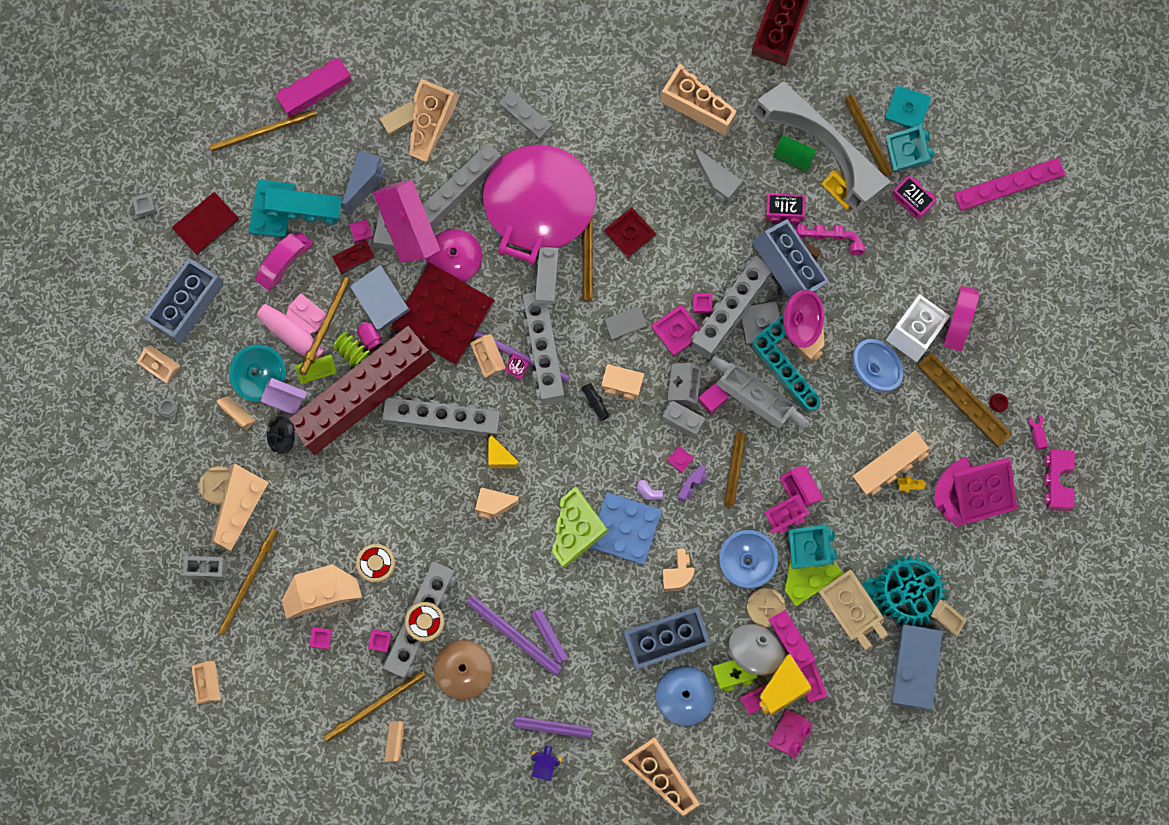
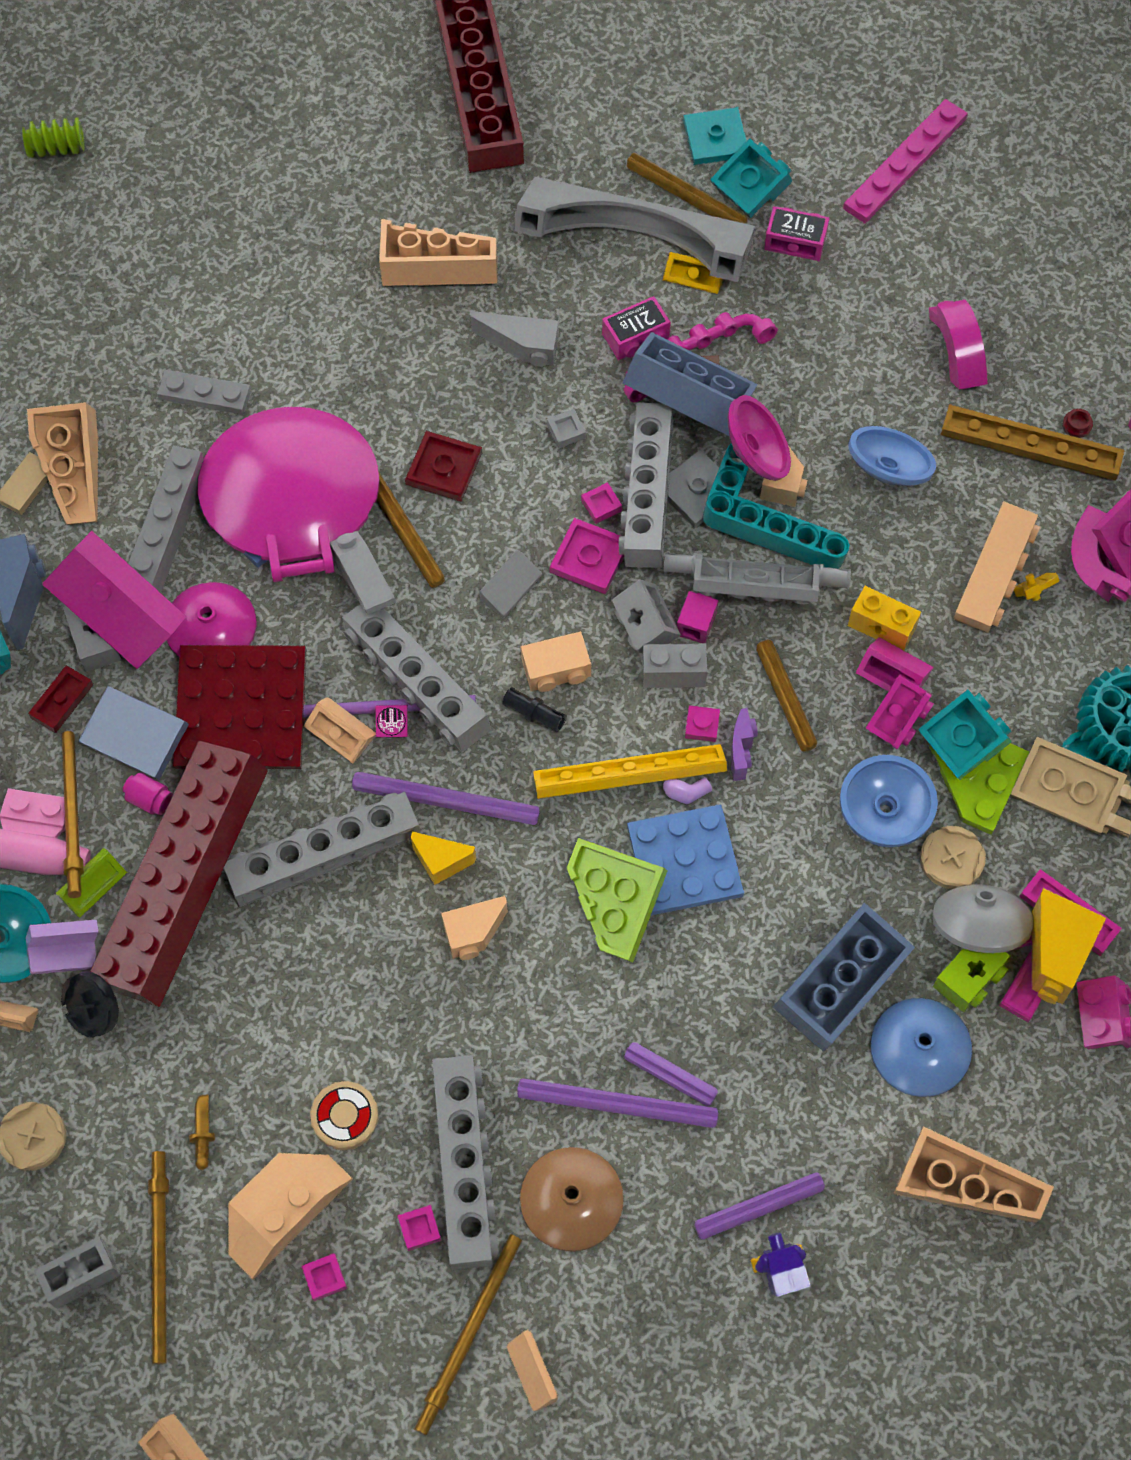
camera: 30 degrees left, 10 degrees down
(238, 503) = (77, 1137): light nougat wedge -> none
(301, 531) = (202, 1136): none -> pearl gold piece
(350, 350) = (128, 827): lime piece -> none
(361, 231) = (52, 659): dark pink plate -> none
(424, 621) = (473, 1155): tile -> none
(521, 425) = (447, 798): none -> medium lavender axle
(625, 464) = (629, 771): none -> yellow tile
(678, 578) = (806, 882): light nougat brick -> none
(710, 247) = (566, 428): none -> light grey plate
(792, 639) = (1017, 874): dark pink plate -> none
(794, 153) = (605, 256): green brick -> none
(813, 456) = (884, 618): none -> yellow brick
(918, 328) = (910, 387): white slope -> none

